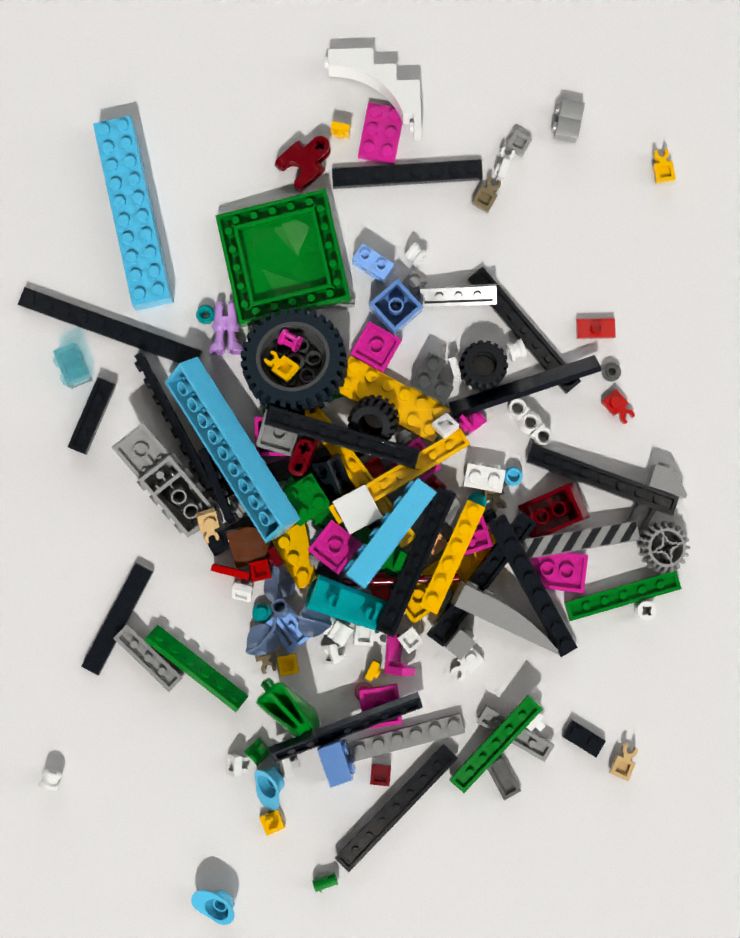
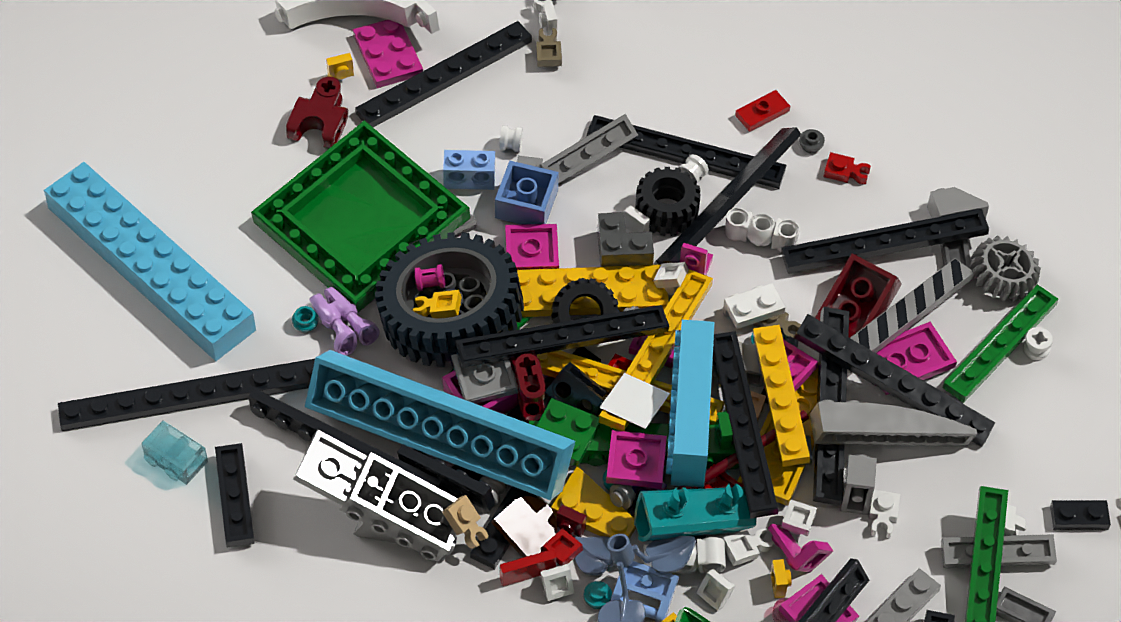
camera: 35 degrees left, 30 degrees down
(513, 476) = (787, 292): medium azure plate -> none

